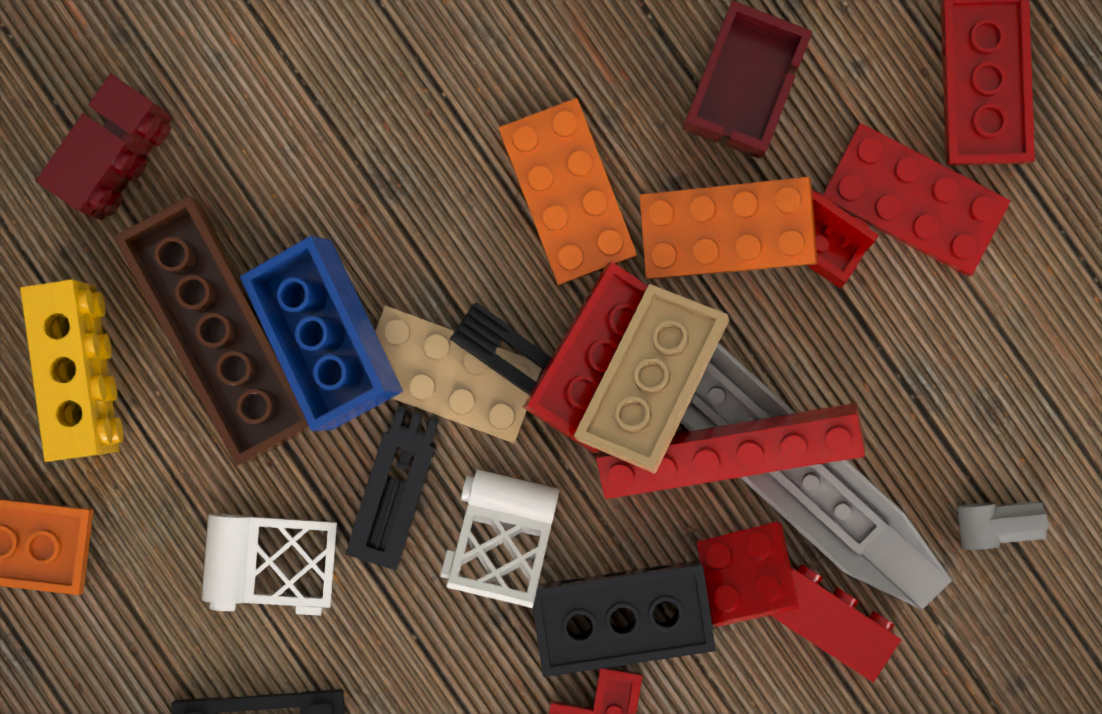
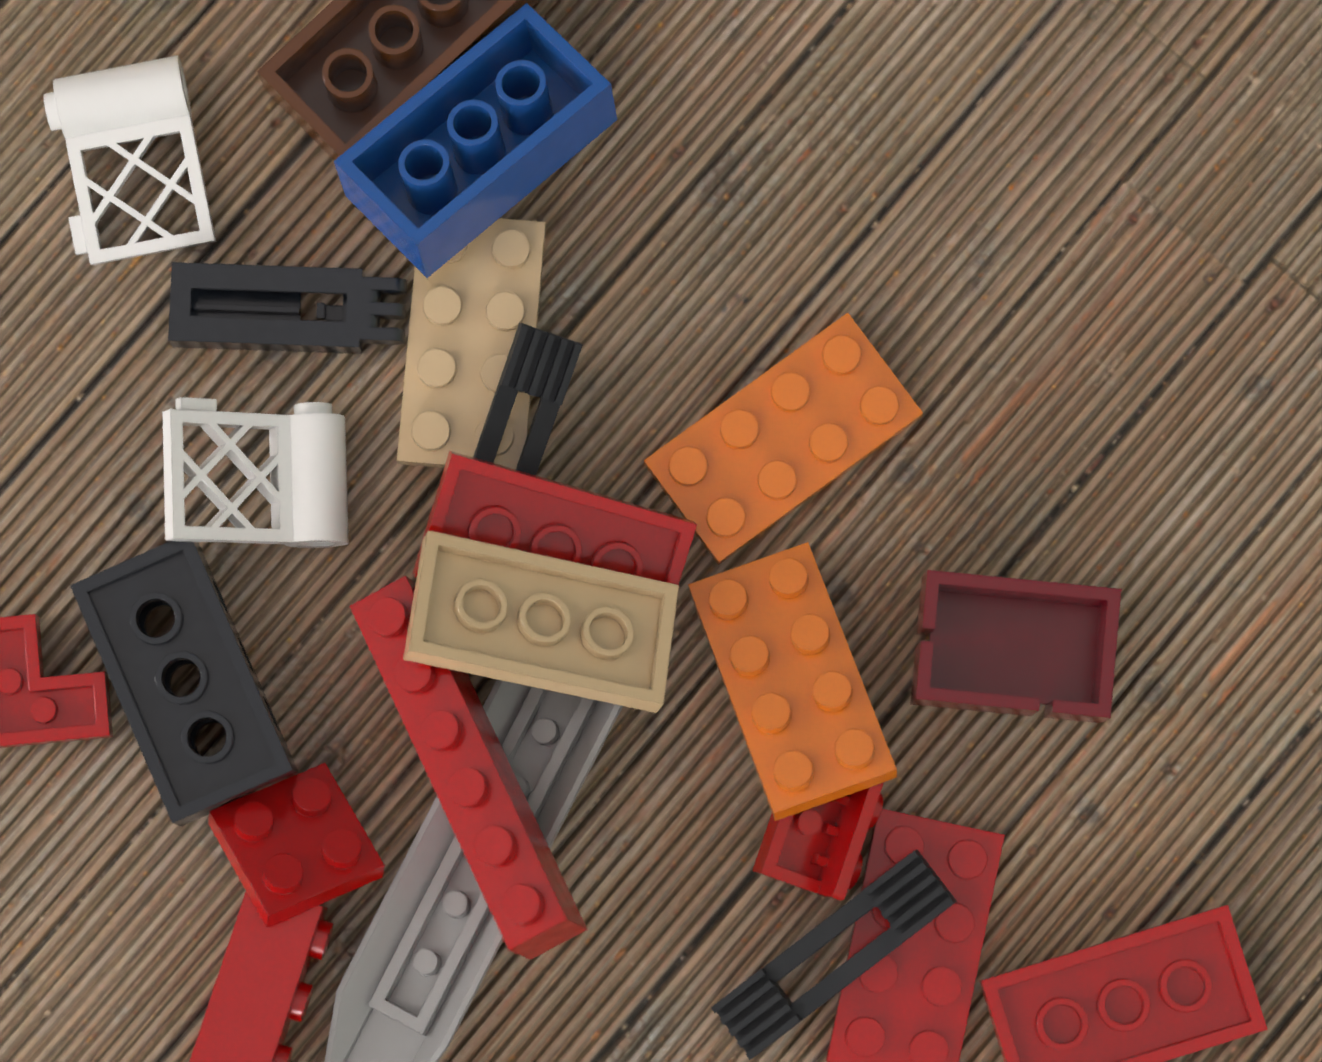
camera: 65 degrees right, 5 degrees down
(889, 193) = (759, 1008): none -> black container

